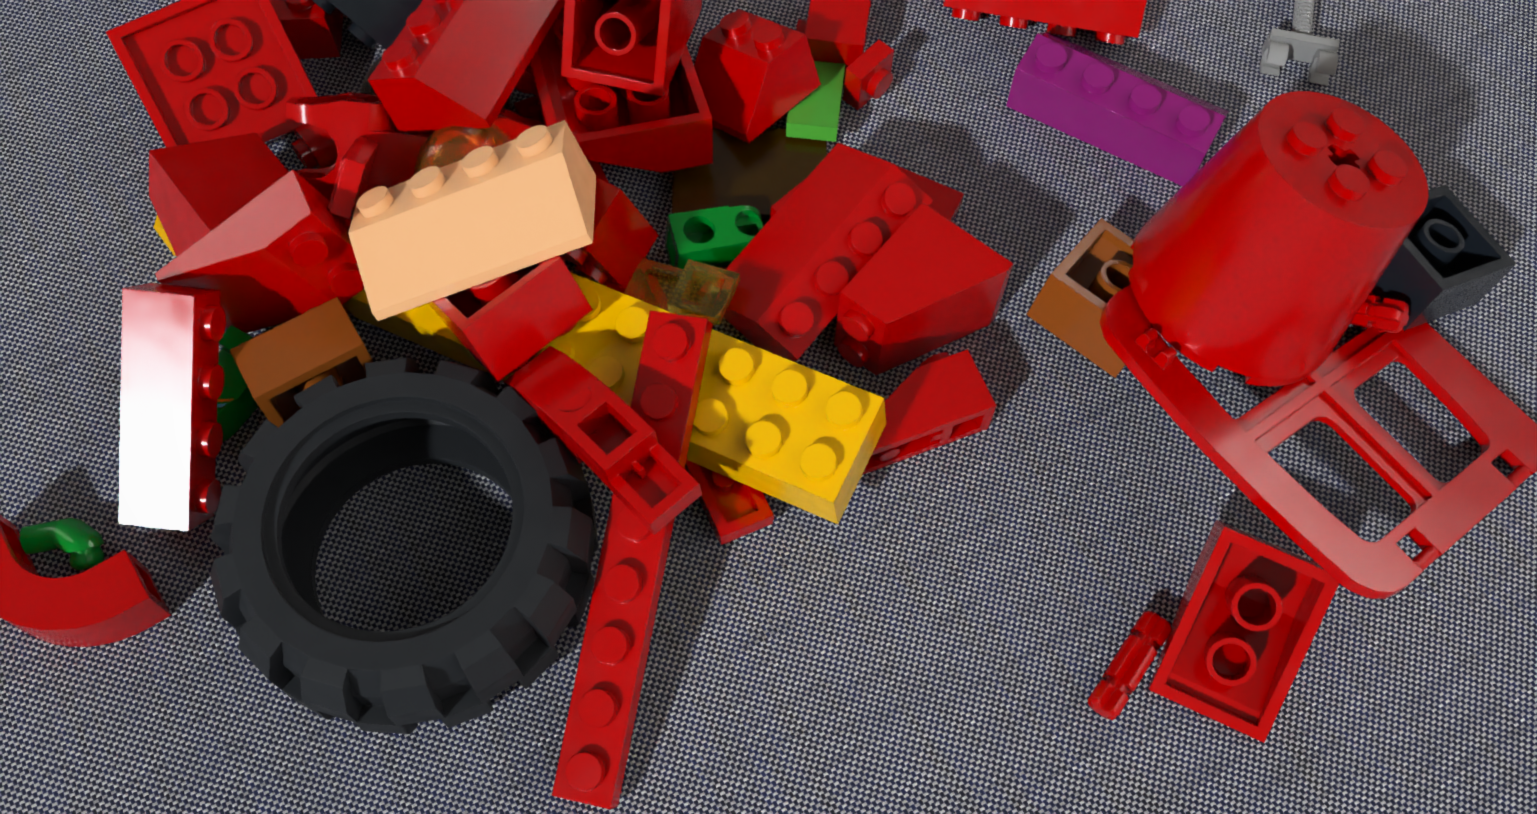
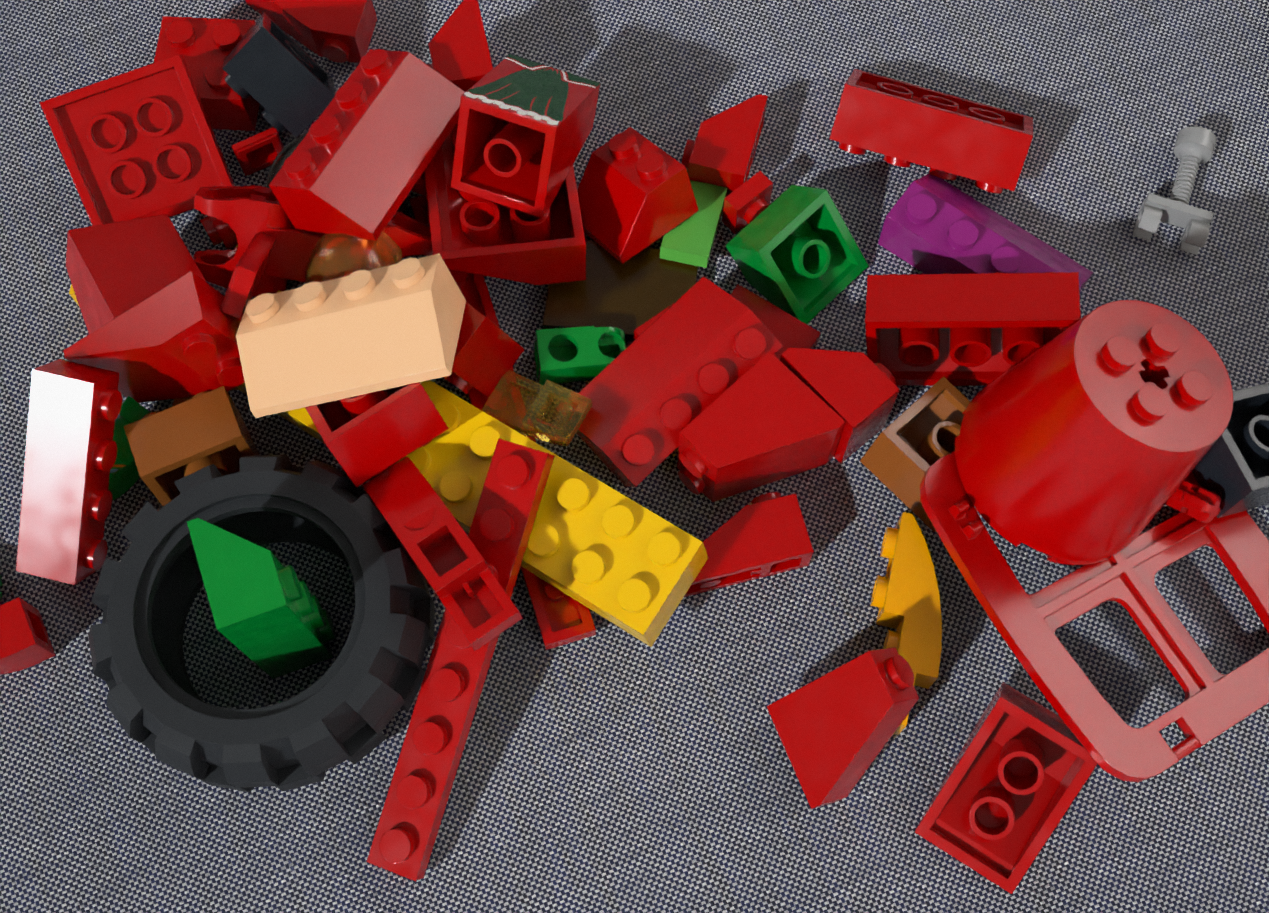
camera: 10 degrees right, 5 degrees up
(346, 70) = (258, 151): none -> red slope
(407, 511) = (260, 602): none -> green slope
(929, 116) = (798, 252): none -> green slope
(1015, 230) = (850, 386): none -> red slope
(1059, 575) = (843, 722): none -> red slope
(1109, 460) = (910, 602): none -> light orange slope
(1112, 162) = (964, 323): none -> red slope
(1129, 665) = (900, 807): red axle -> none

